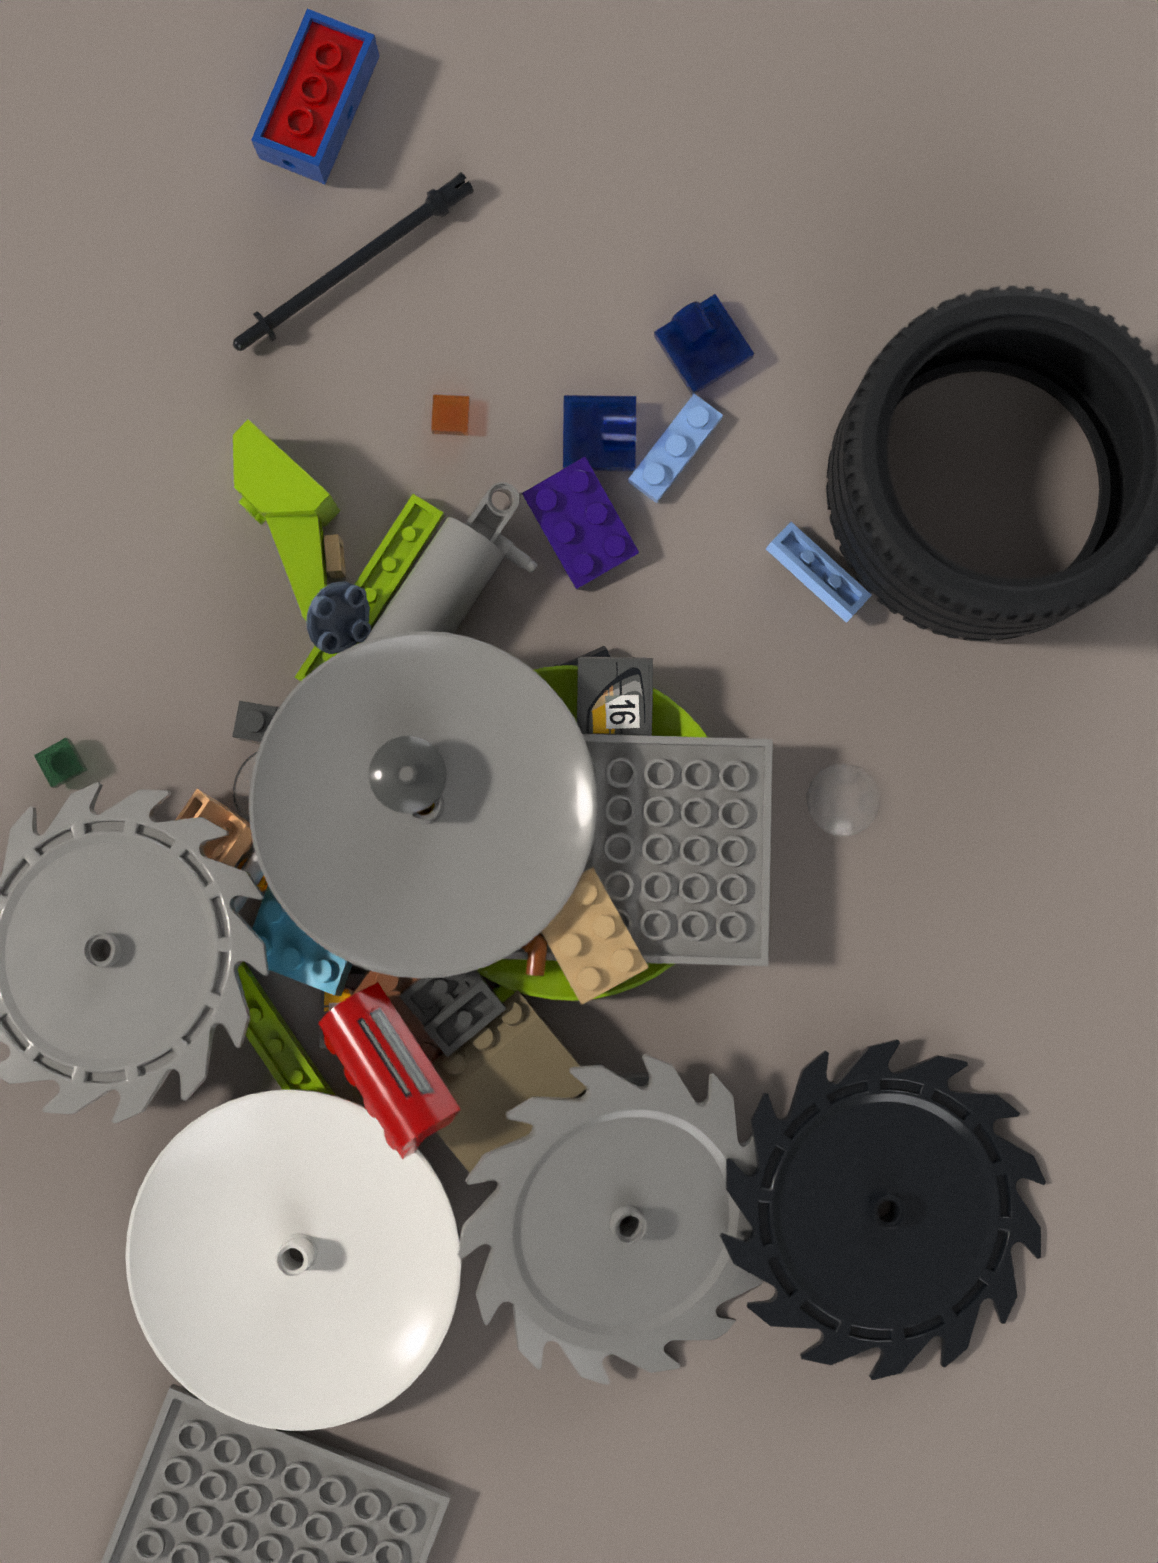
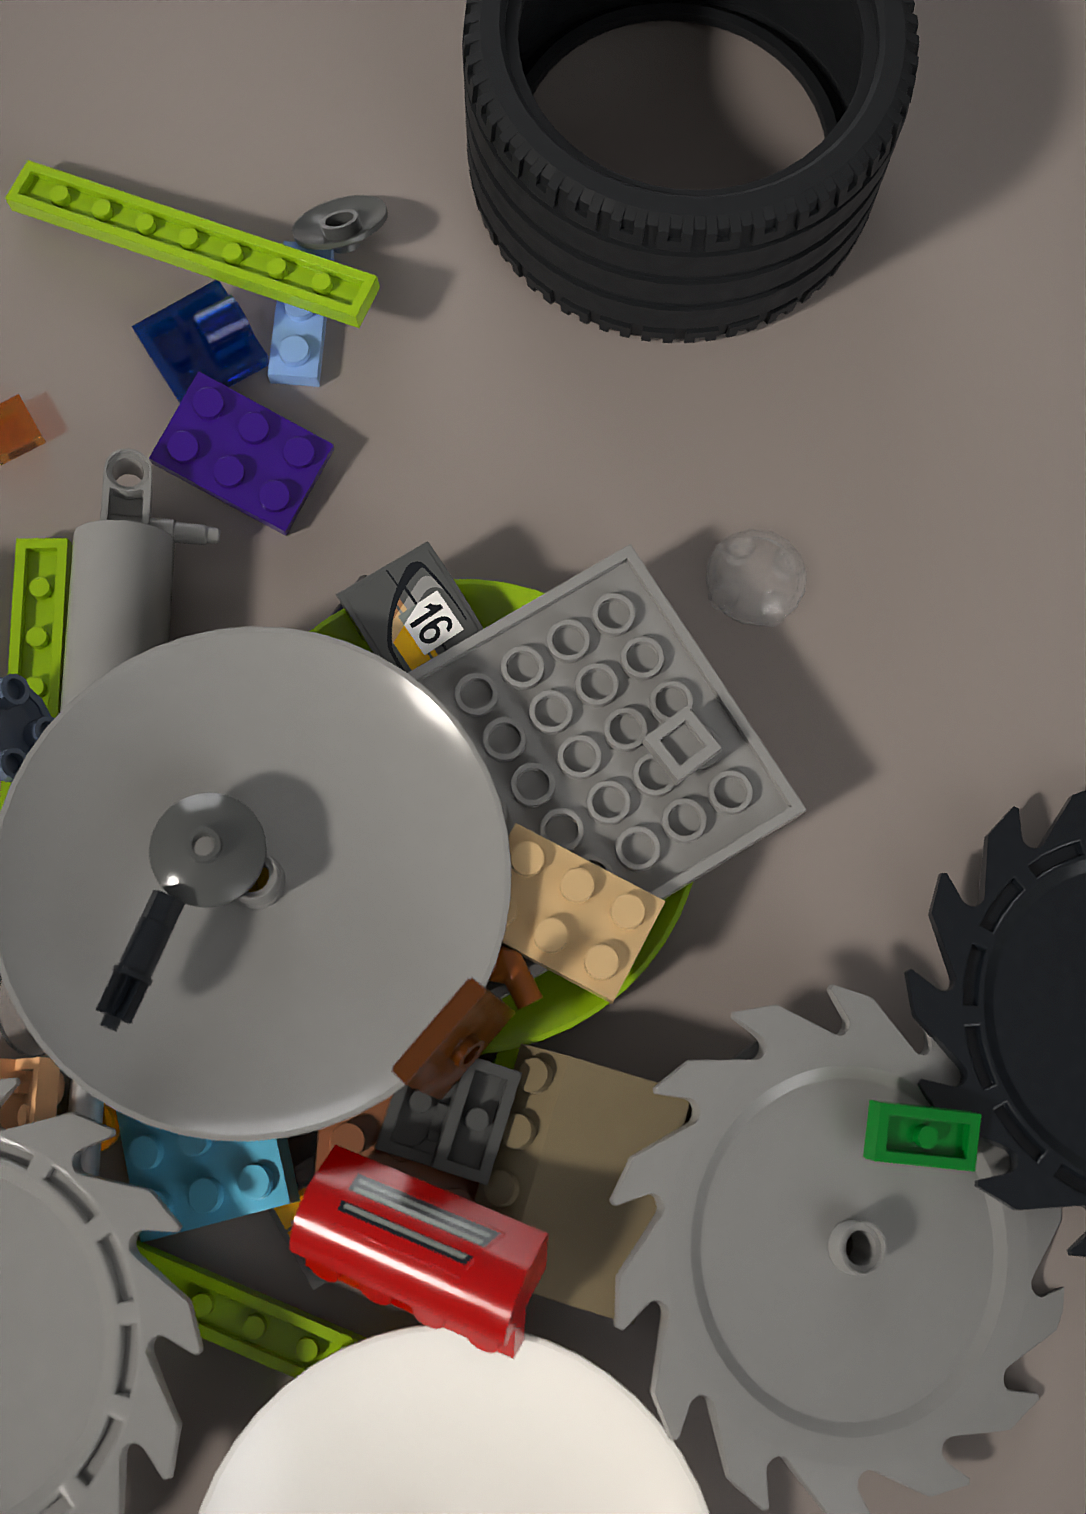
camera: 40 degrees left, 10 degrees down
(325, 820) = (139, 960): none -> black piece
(476, 971) = (453, 1040): none -> reddish brown plate
(634, 363) = (194, 243): none -> lime plate
(703, 343) = (258, 182): clear blue plate -> none
(706, 1190) = (922, 1135): none -> green plate
(718, 883) = (681, 745): none -> light grey plate
(736, 404) = (340, 223): none -> dark grey dish
(818, 571) = (554, 344): light blue plate -> none

